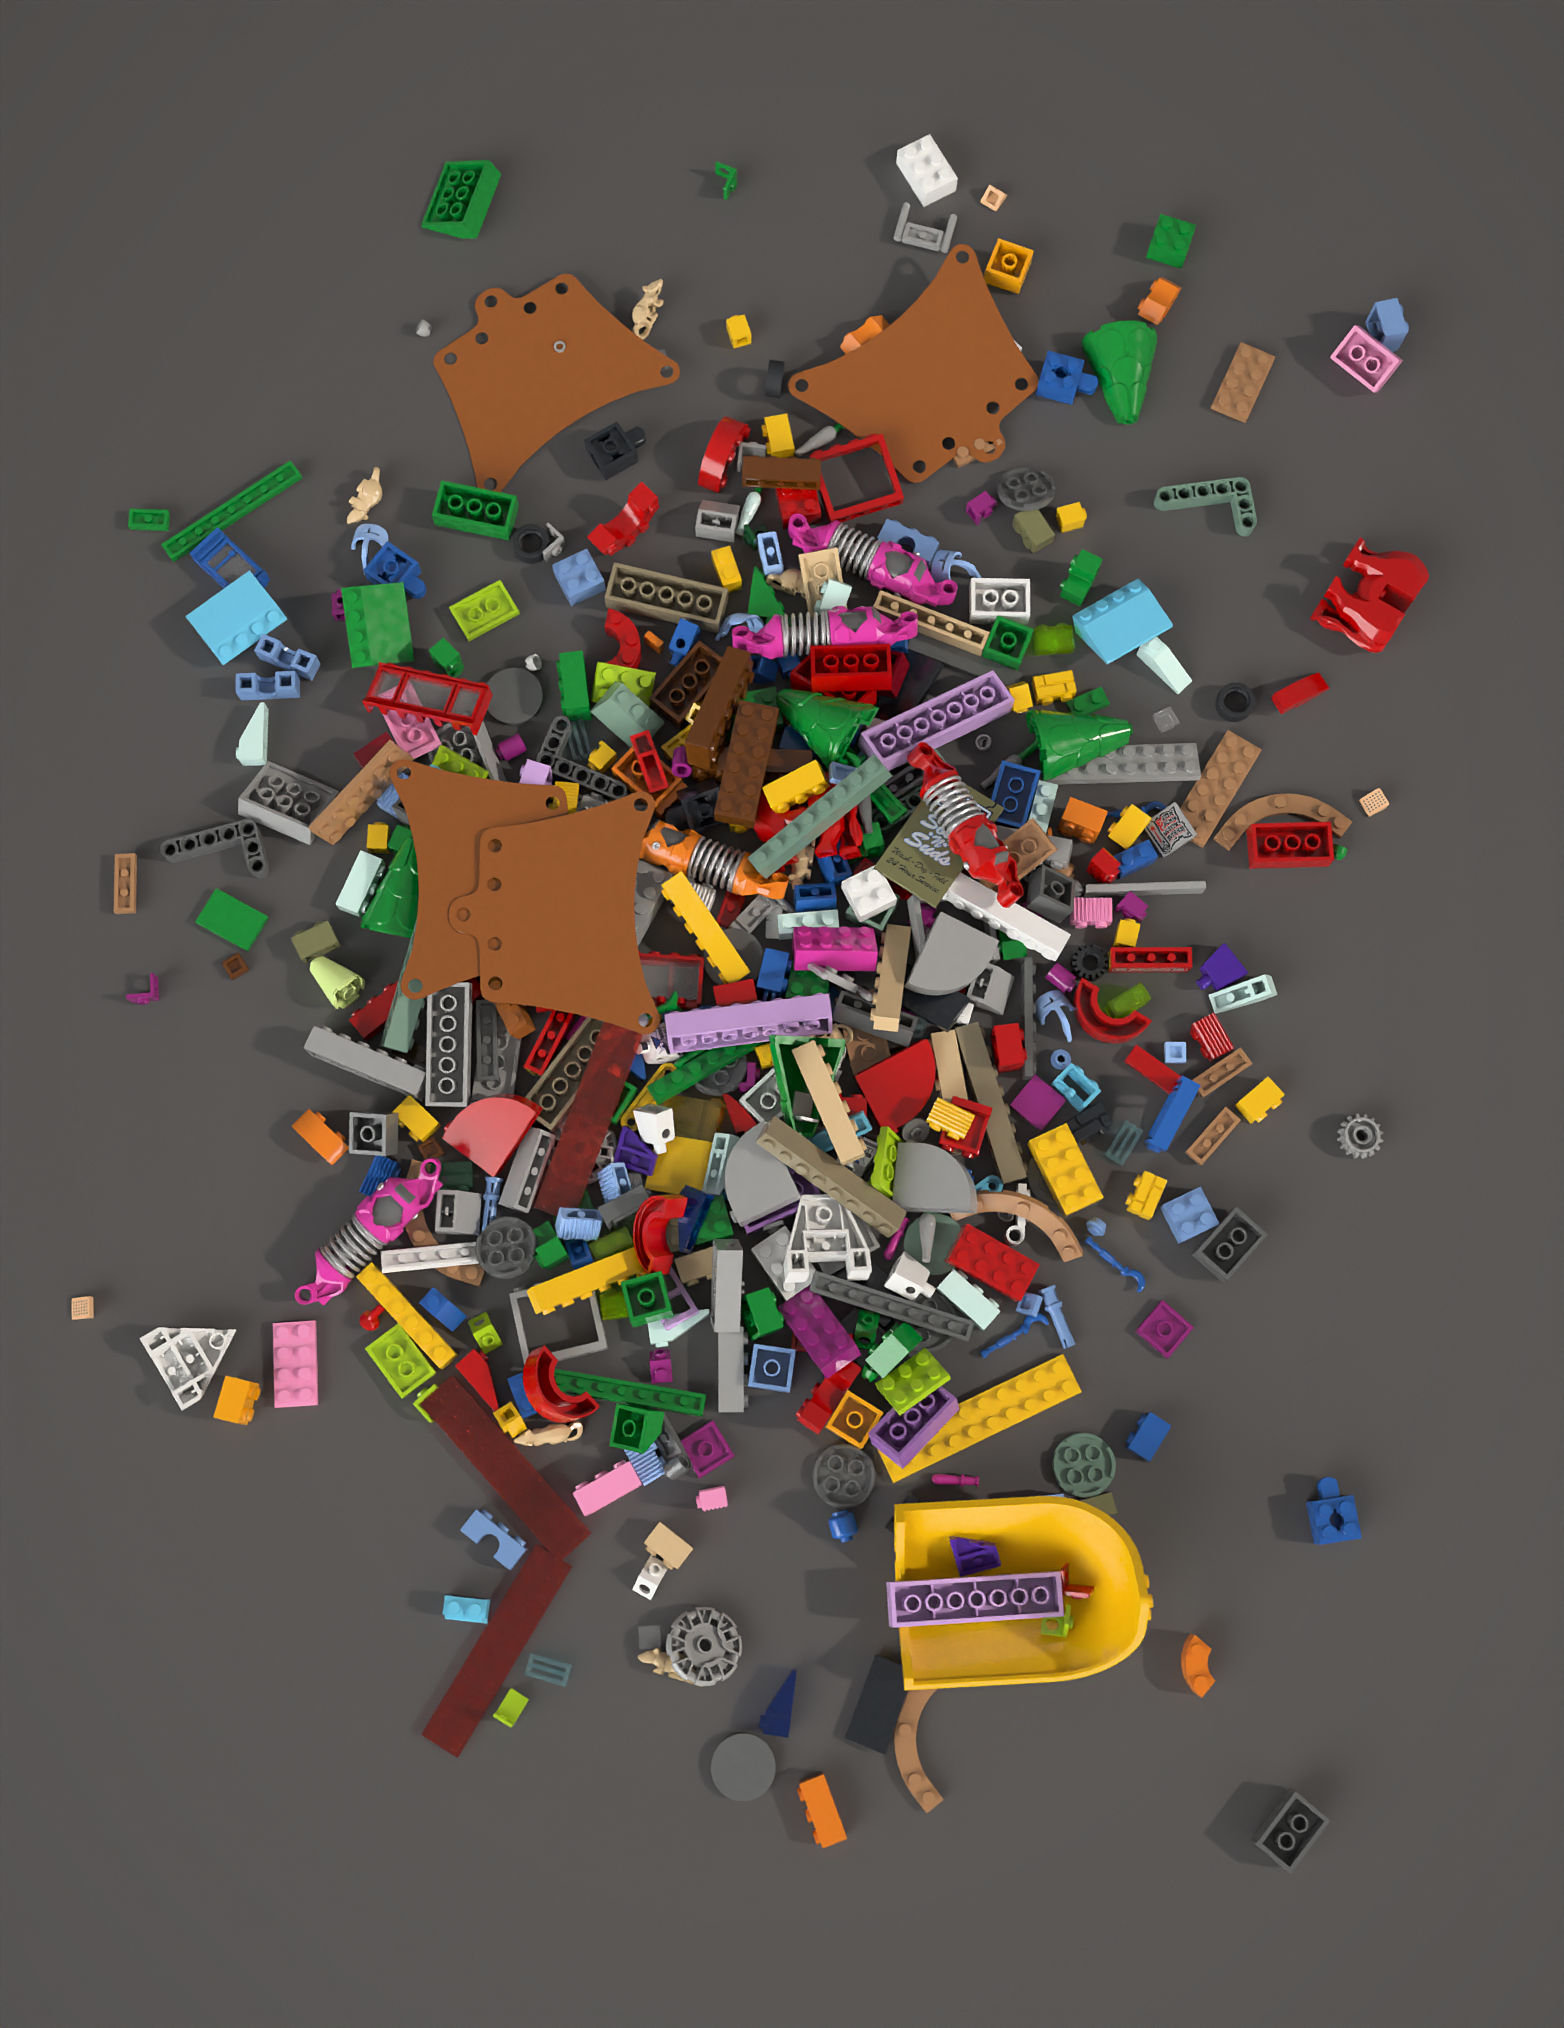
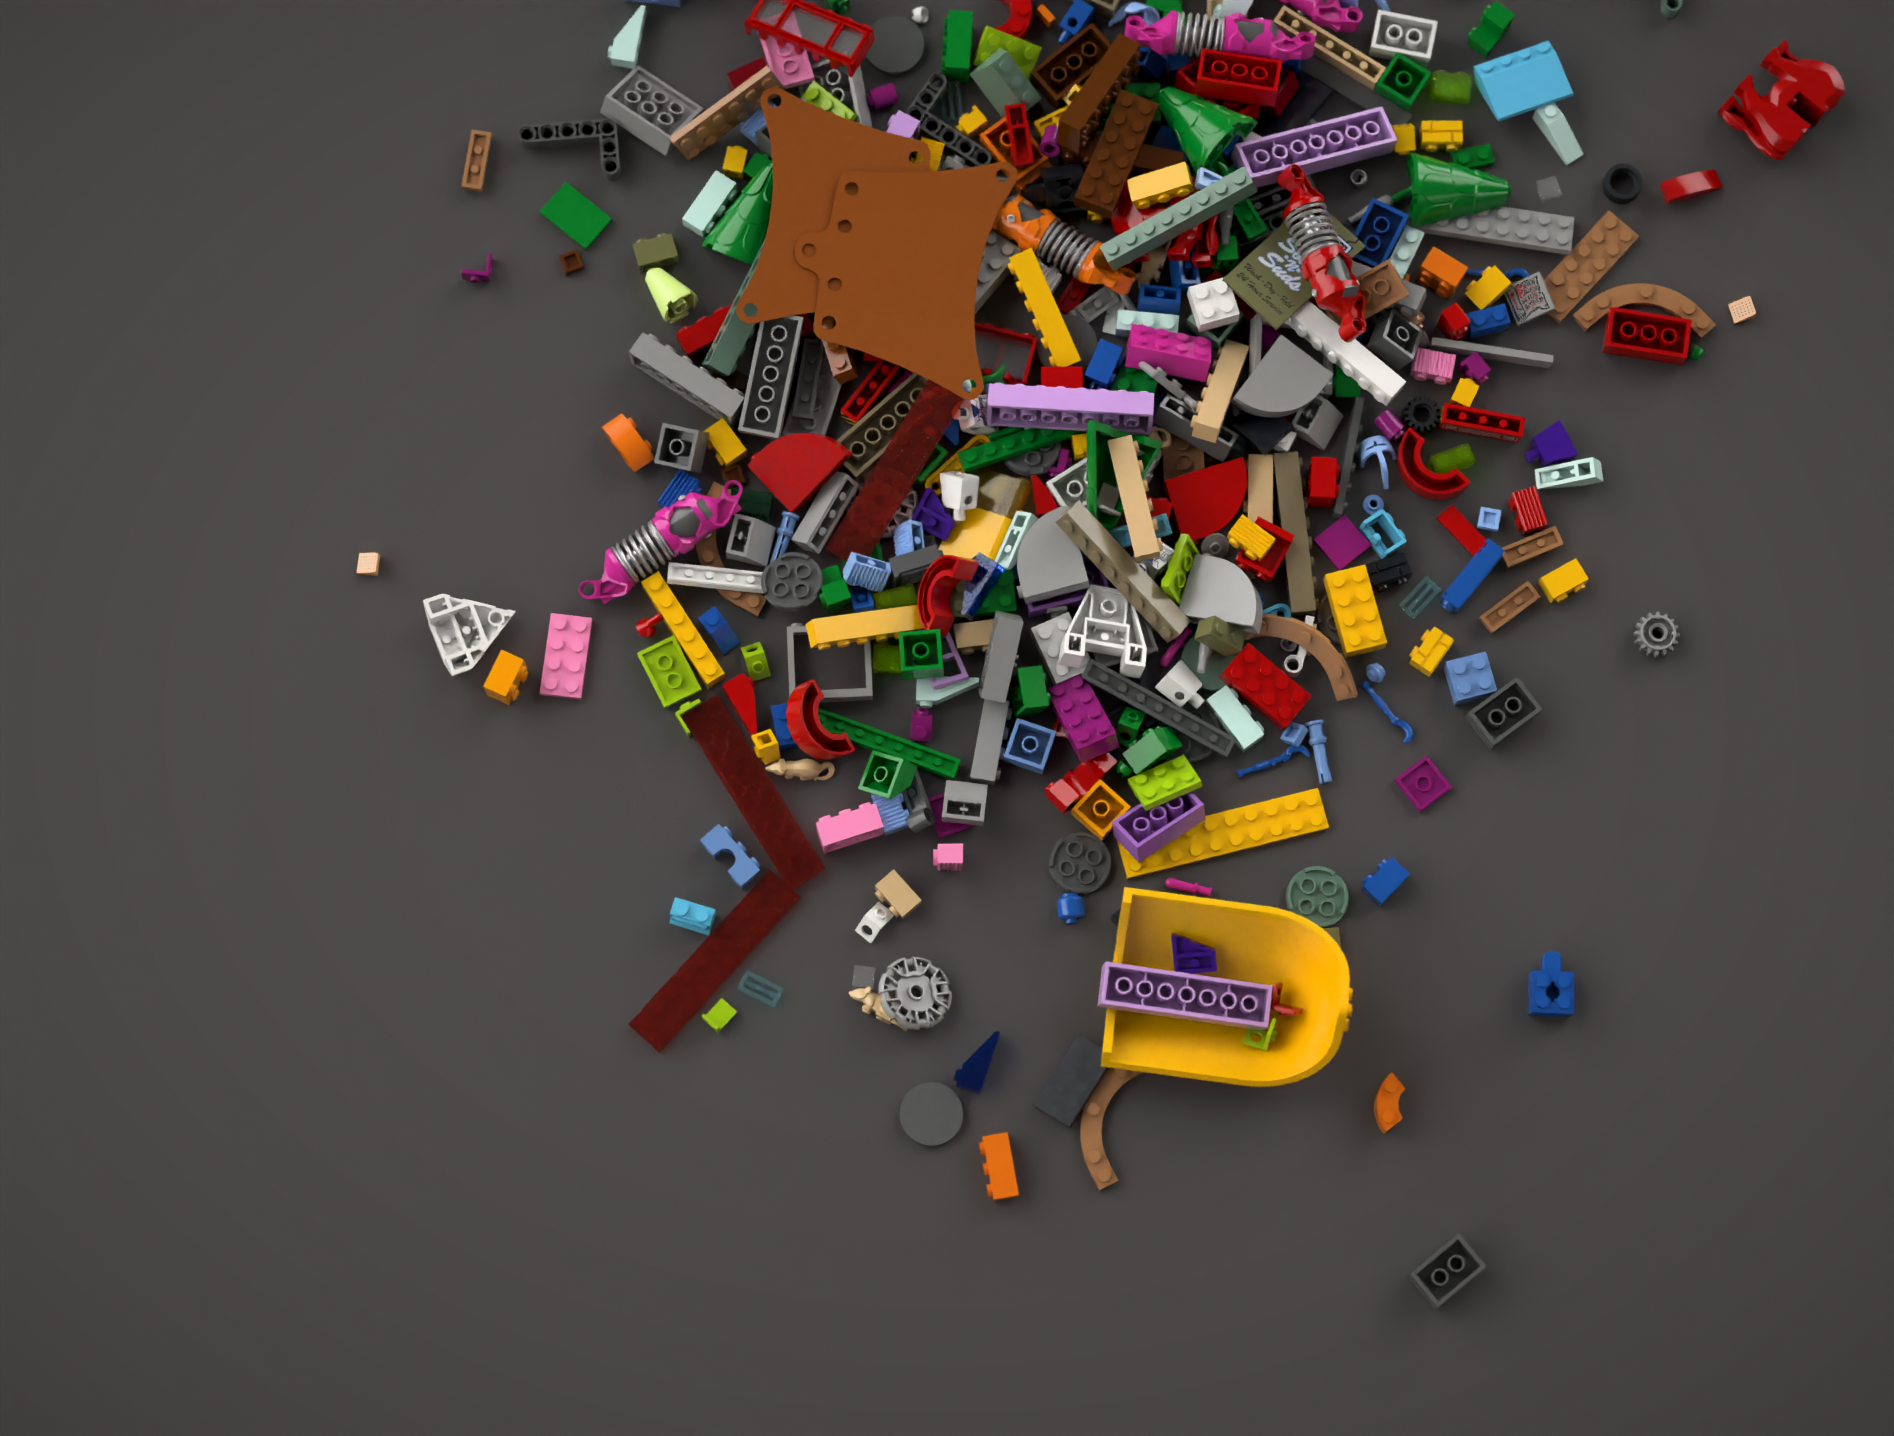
camera: 10 degrees right, 0 degrees up
(717, 1438) = (964, 803): none -> light grey slope
(938, 1222) = (1220, 635): none -> olive brick

